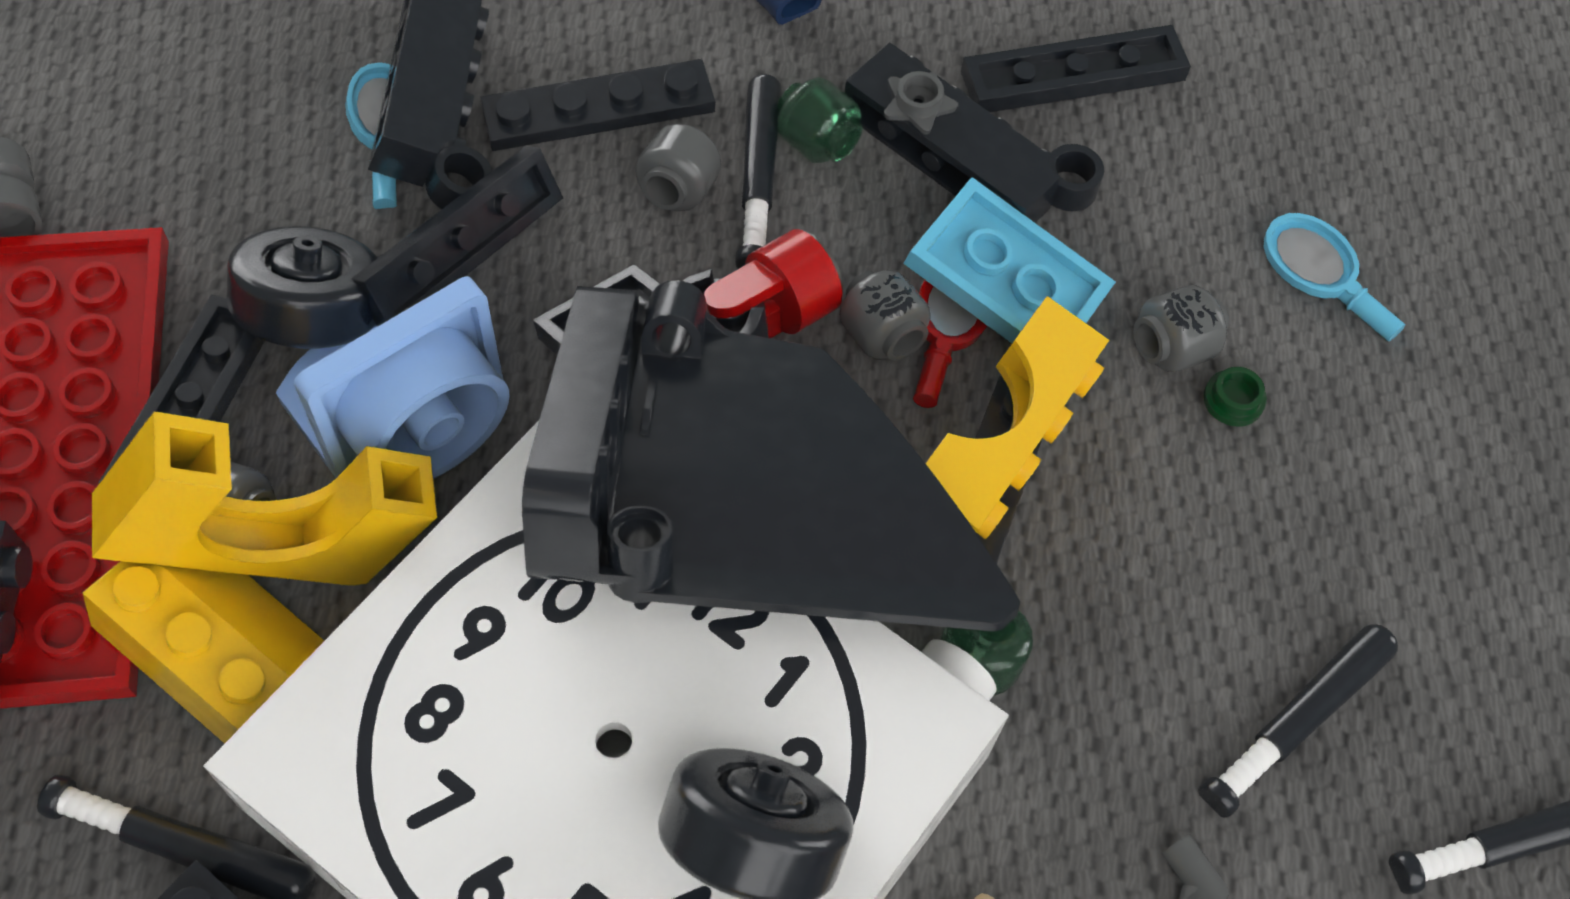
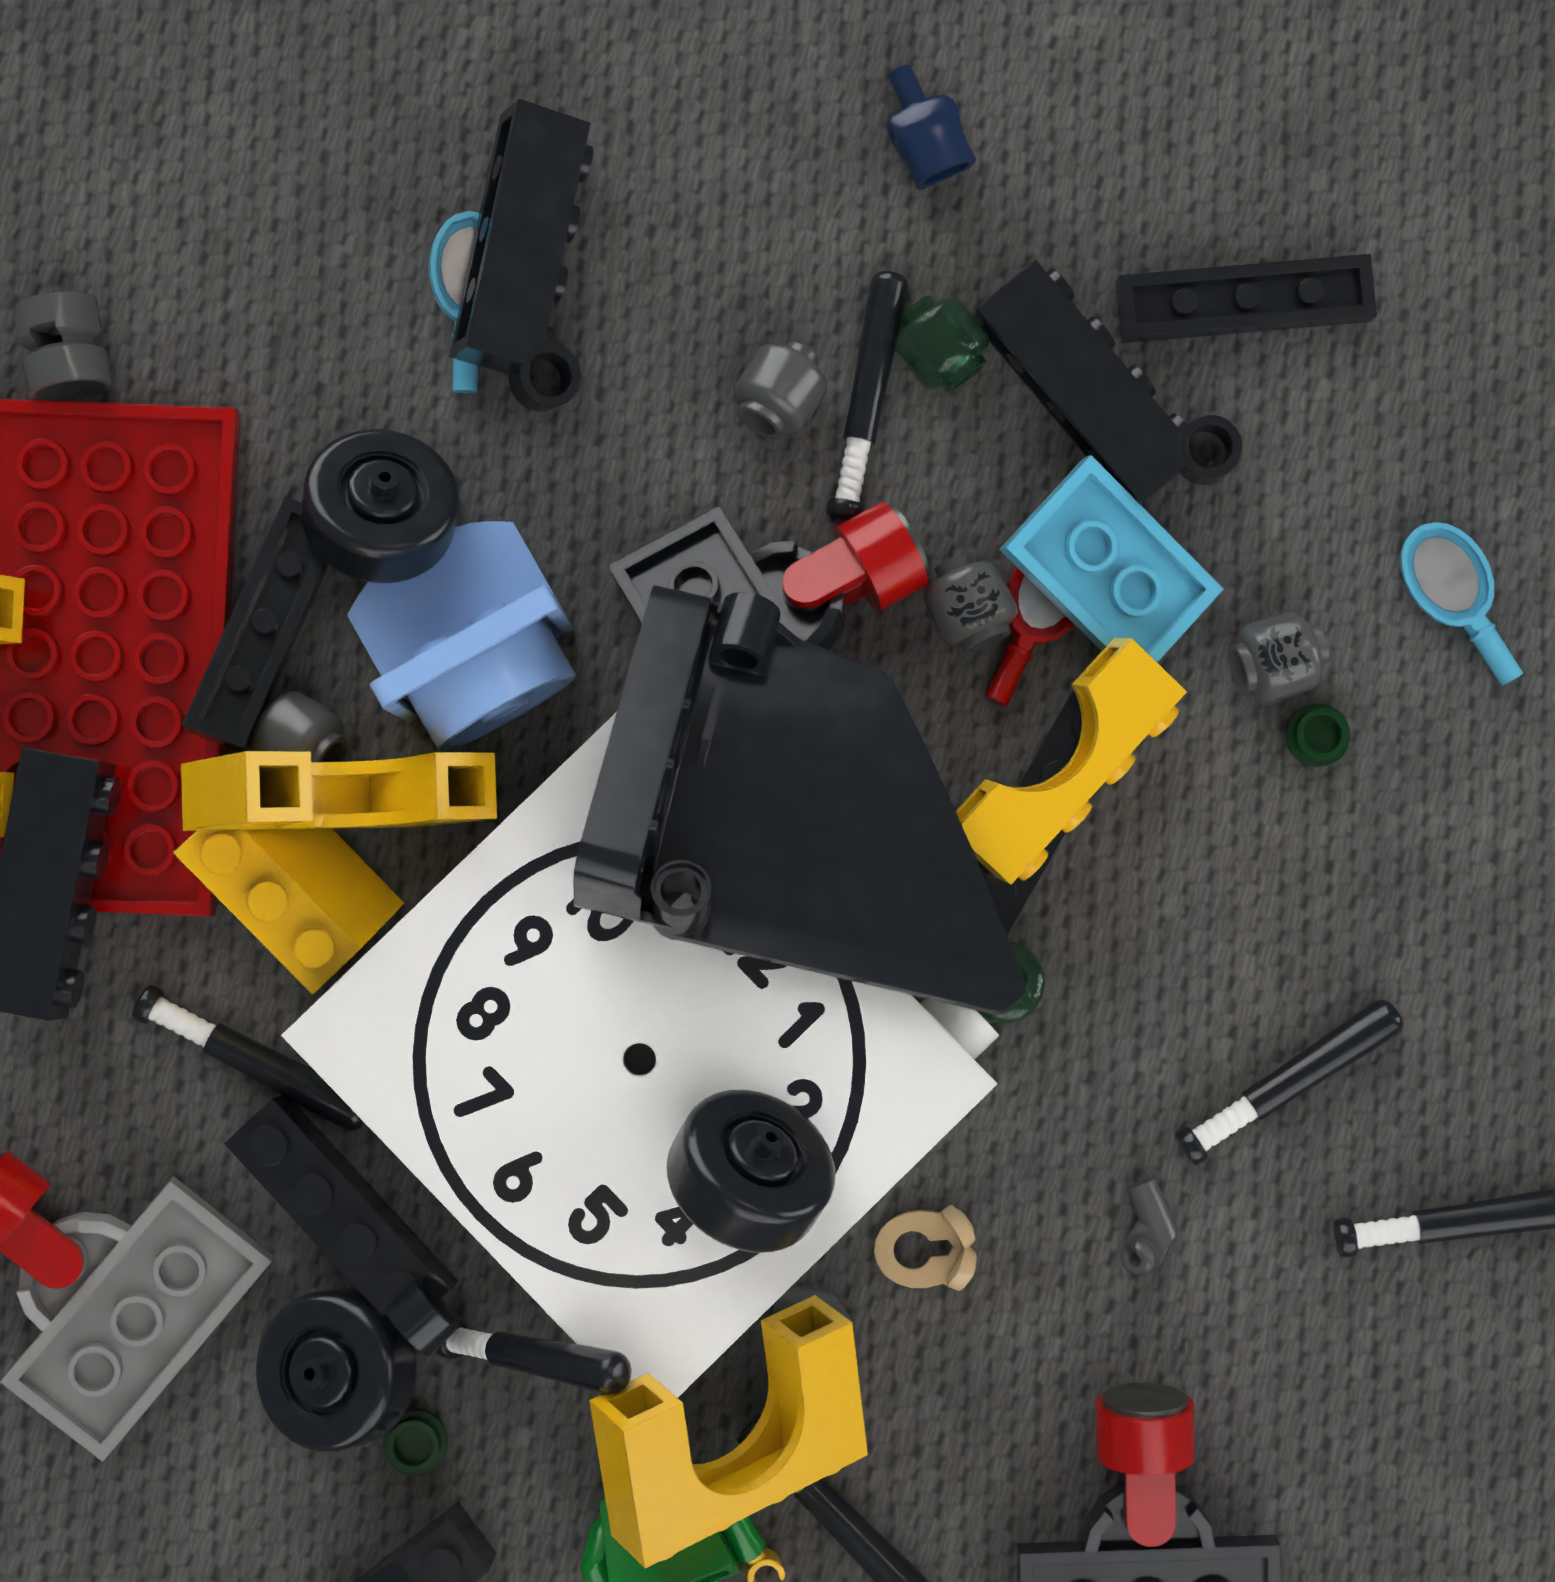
camera: 10 degrees right, 25 degrees up
(461, 235) = (541, 460): black plate -> none
(597, 104) = (703, 284): black plate -> none
(918, 86) = (1061, 333): dark grey plate -> none

